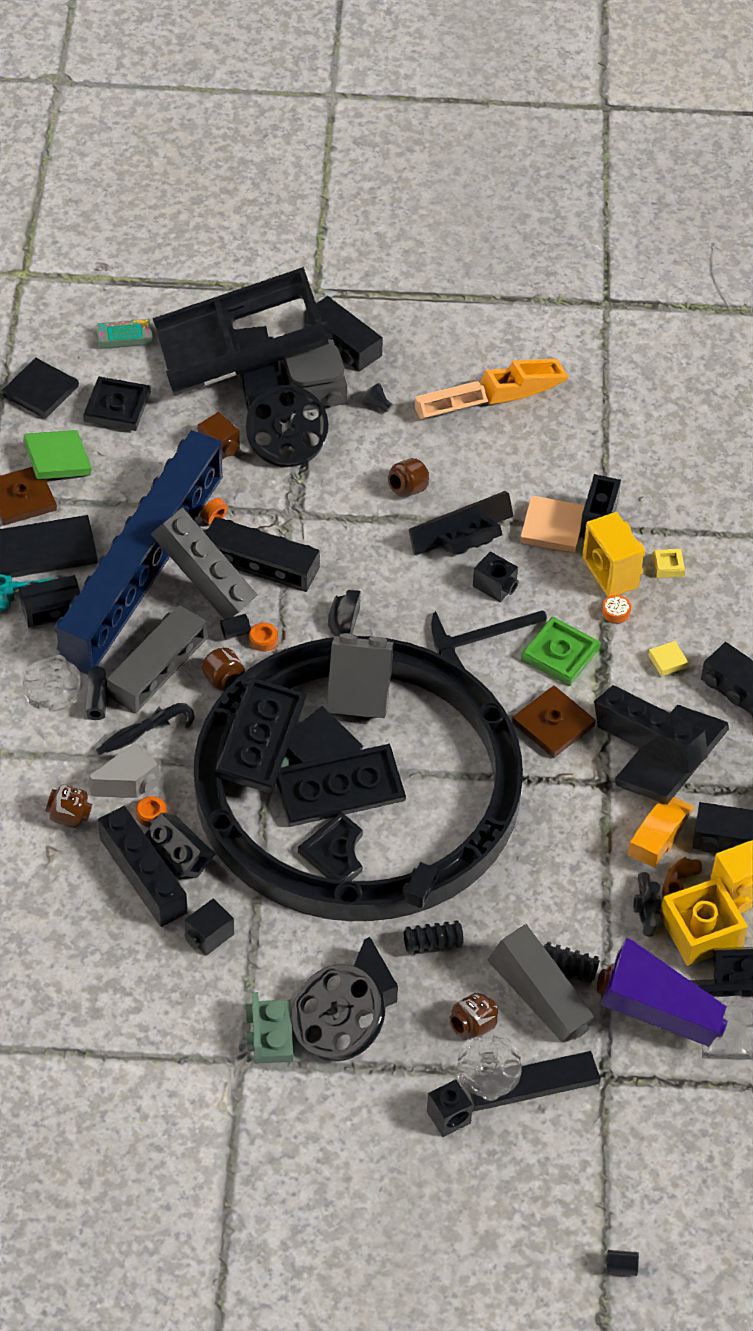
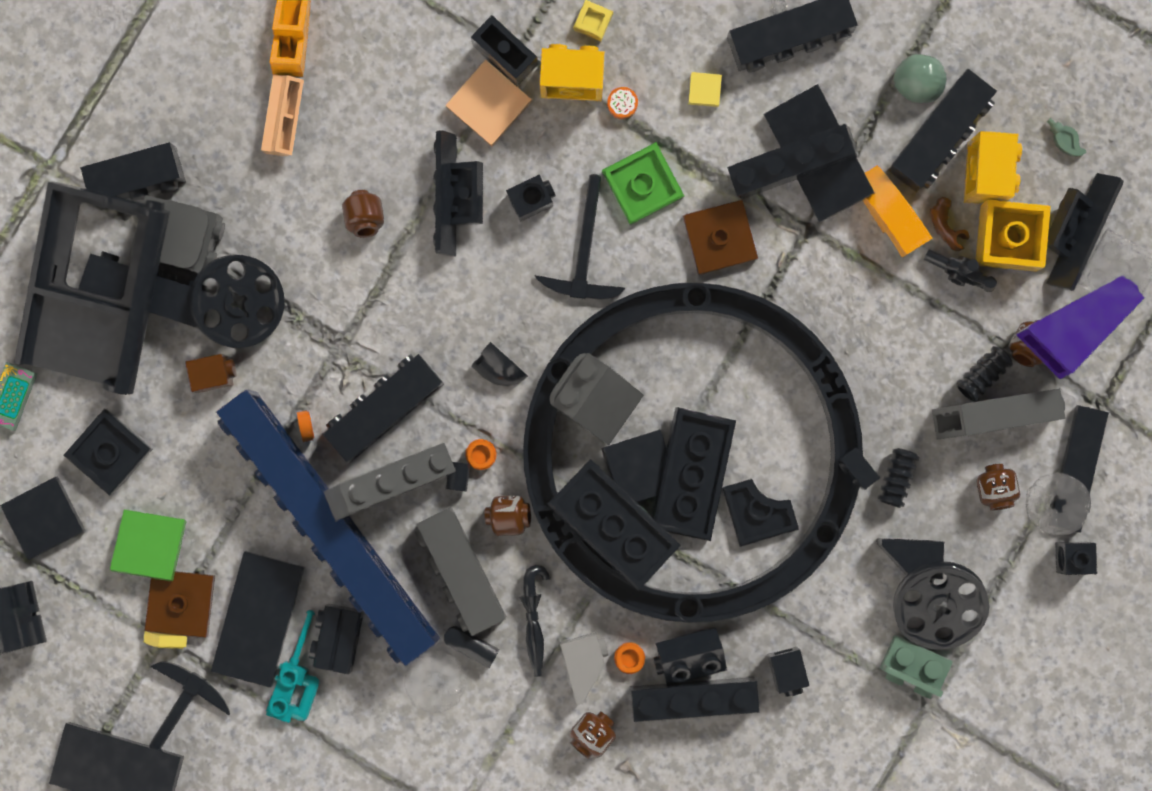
camera: 60 degrees left, 35 degrees up
(375, 397) = (237, 187): black rock -> none

